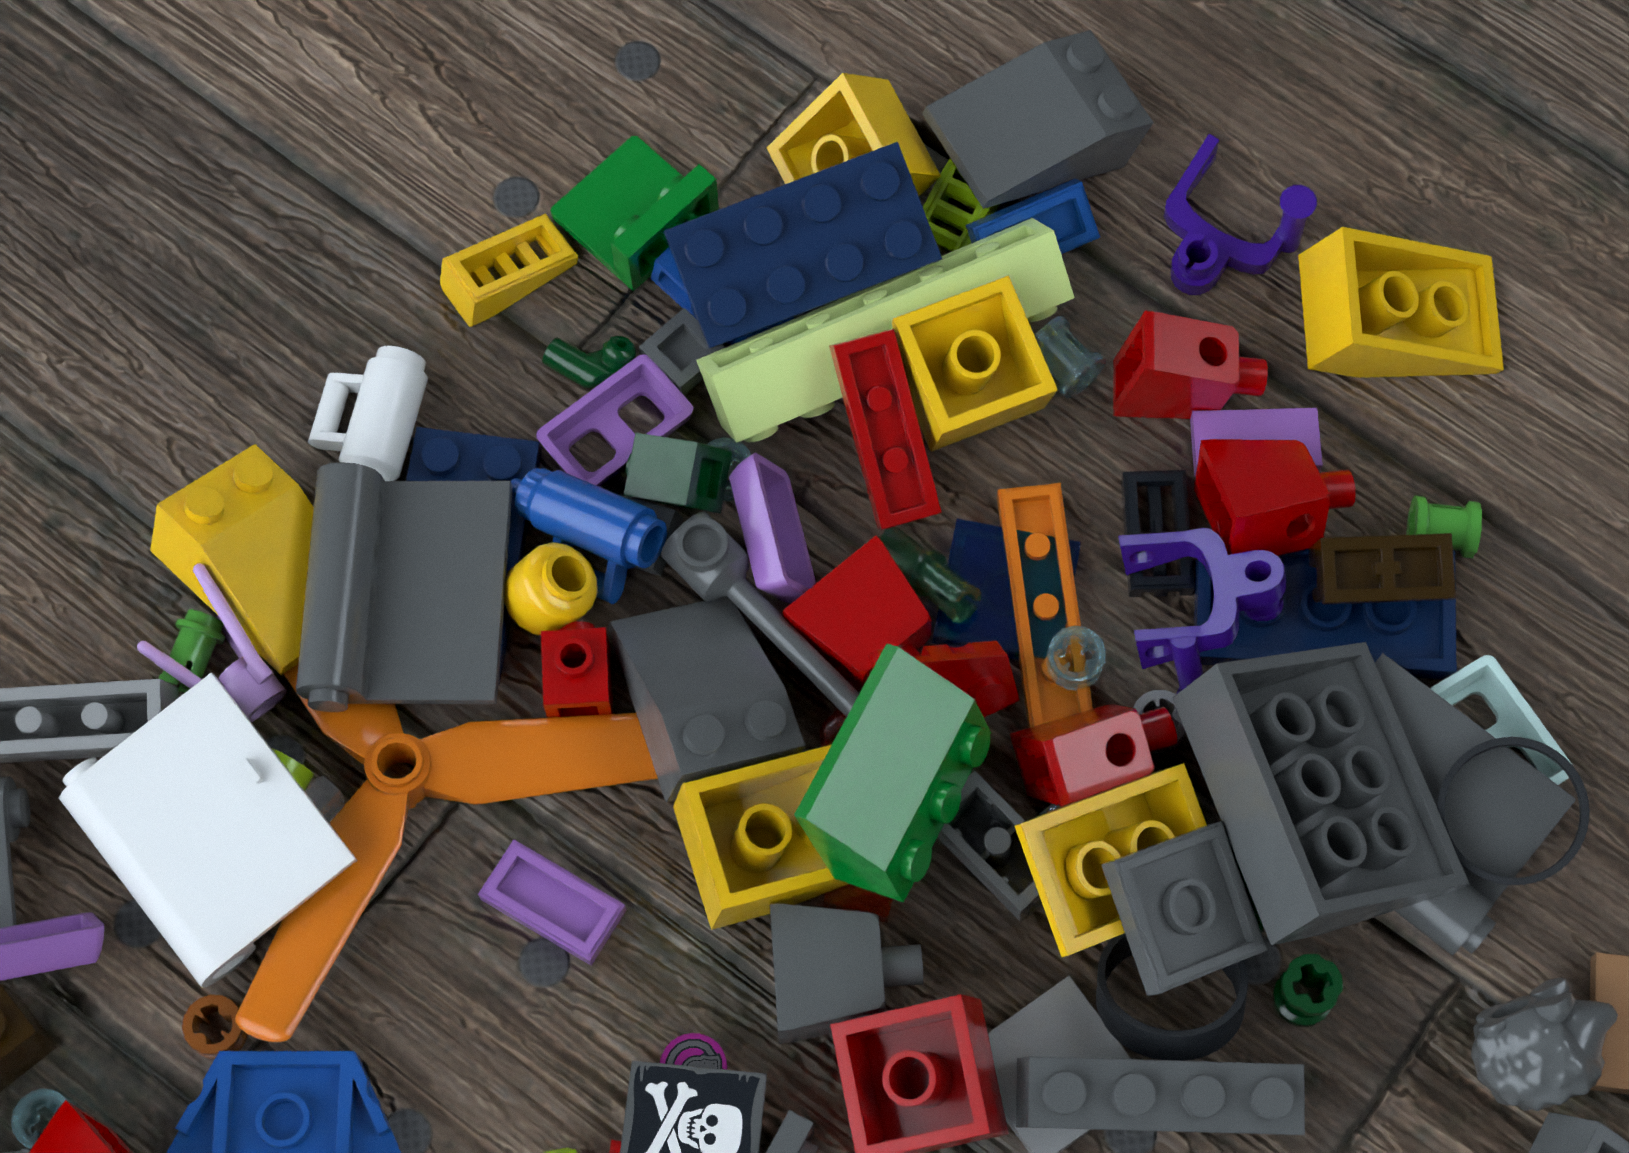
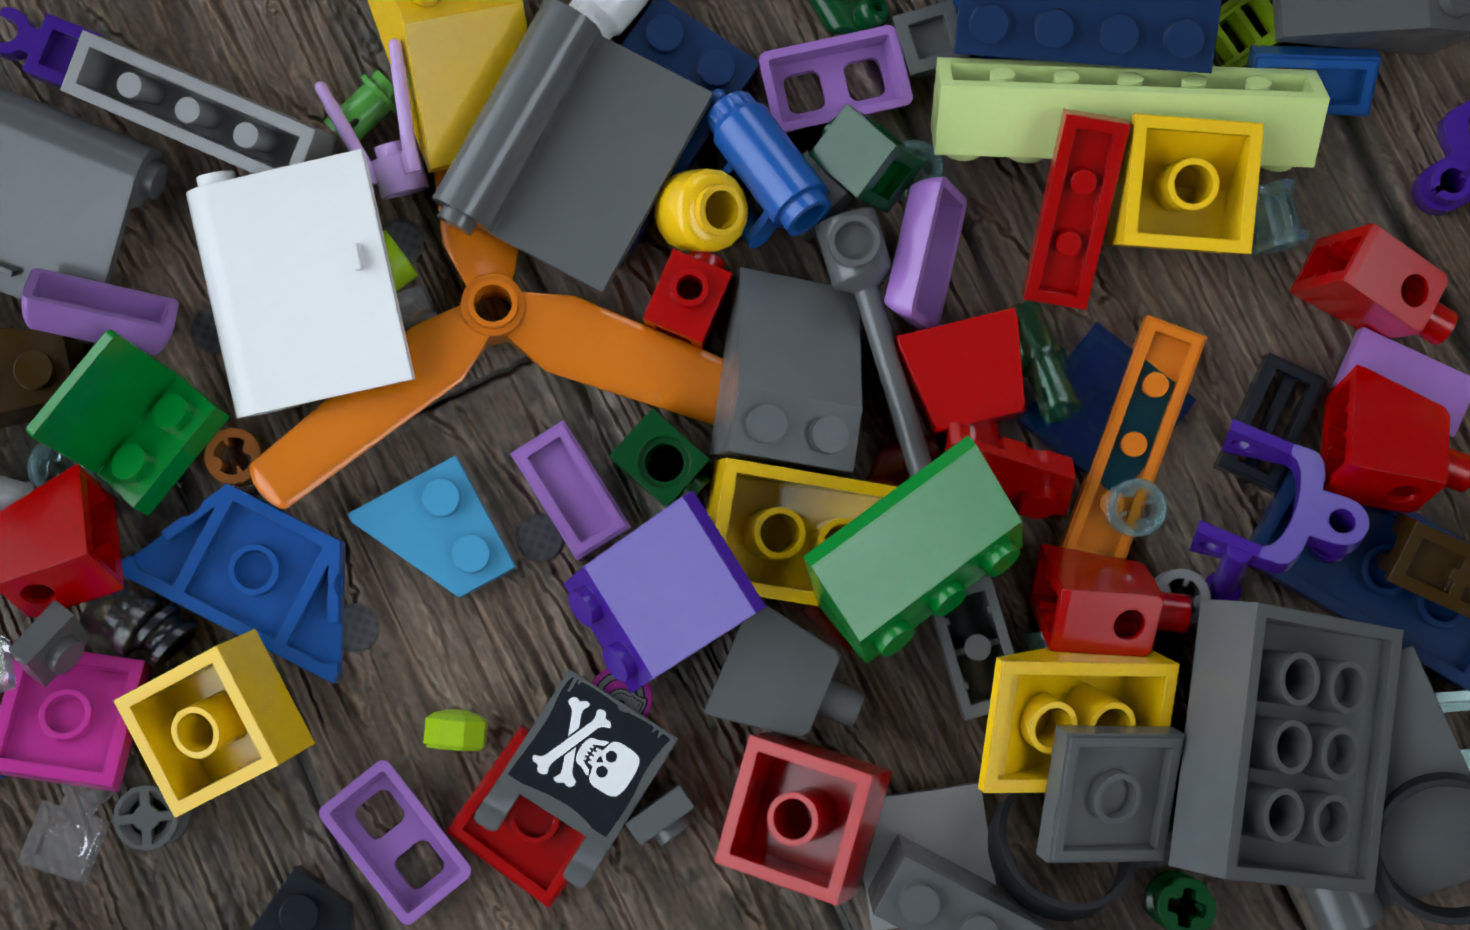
camera: 25 degrees right, 15 degrees up
(98, 1036) = (128, 421): none -> green bracket
(444, 997) = (439, 528): none -> dark azure wing
(608, 807) = (644, 440): none -> dark green brick
(685, 934) = (662, 593): none -> slope

